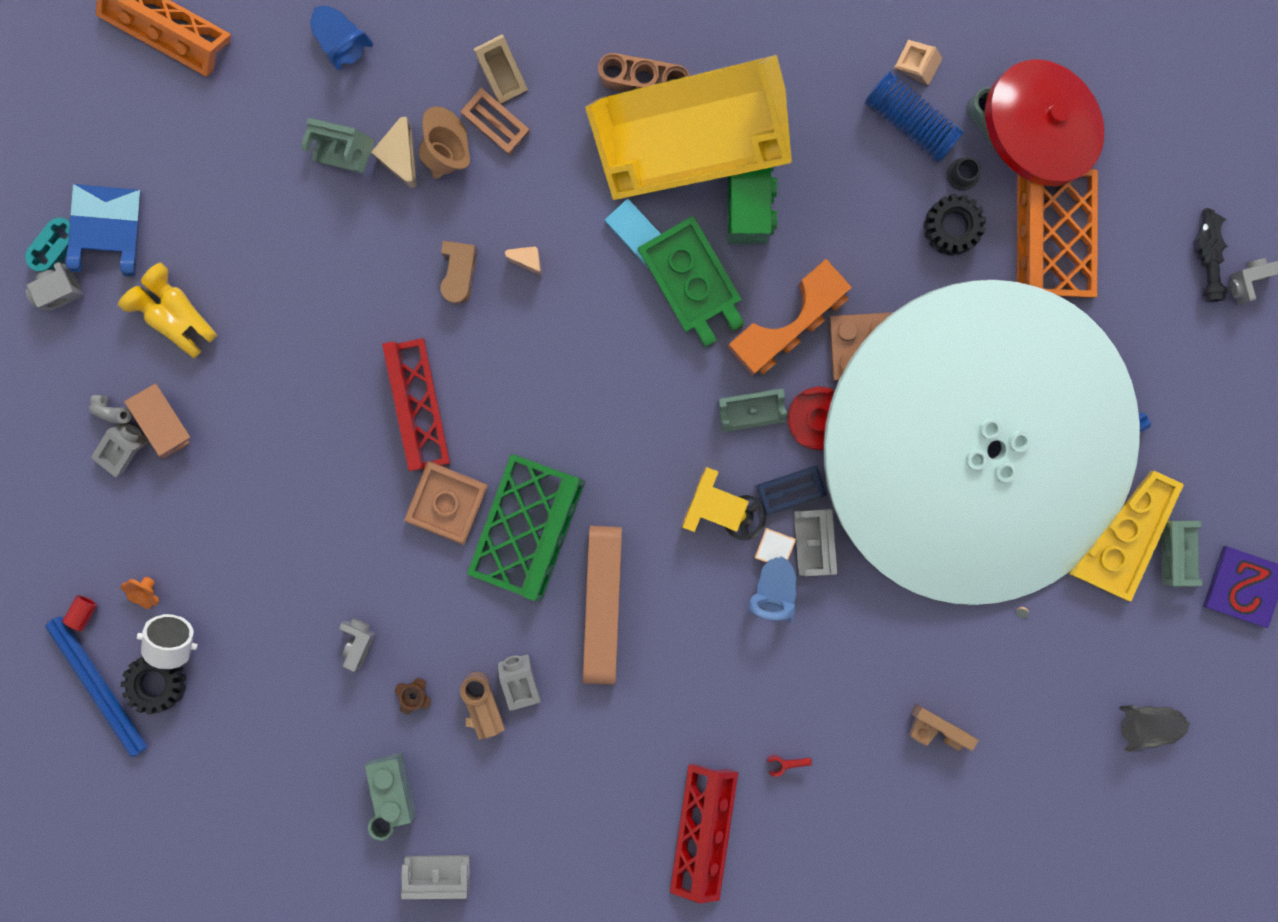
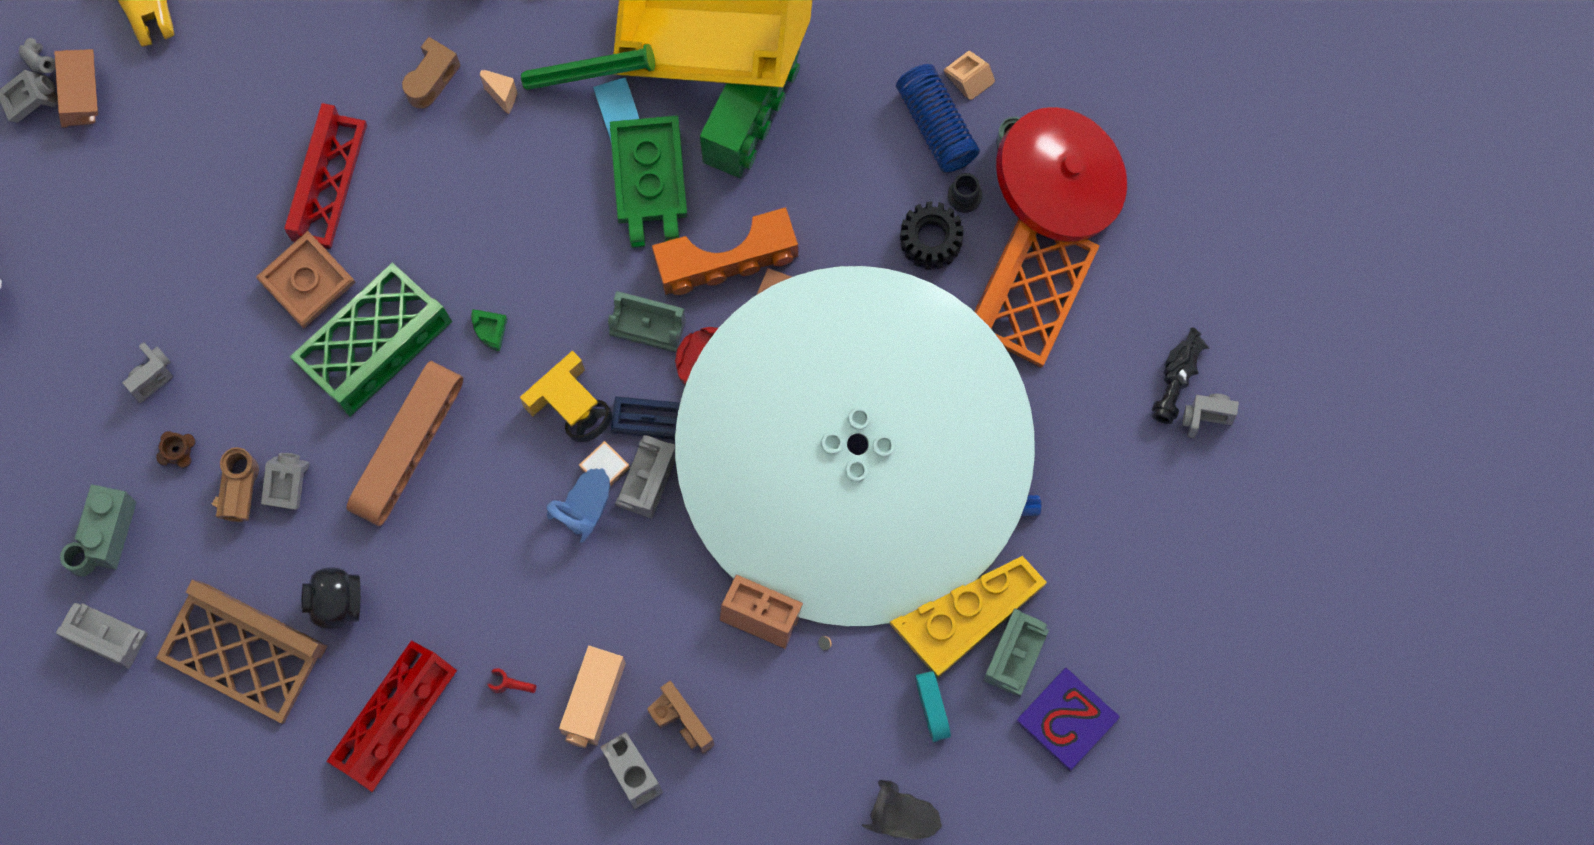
camera: 30 degrees right, 15 degrees down
(555, 809) = (255, 622): none -> medium nougat fence
(595, 207) = (589, 68): none -> green axle
(611, 764) = (332, 598): none -> black piece
(620, 473) = (489, 328): none -> green tile
(860, 746) = (592, 697): none -> light nougat brick
(919, 790) = (631, 770): none -> light grey leg
(964, 613) = (760, 611): none -> nougat hinge
(1136, 627) = (932, 706): none -> teal beam

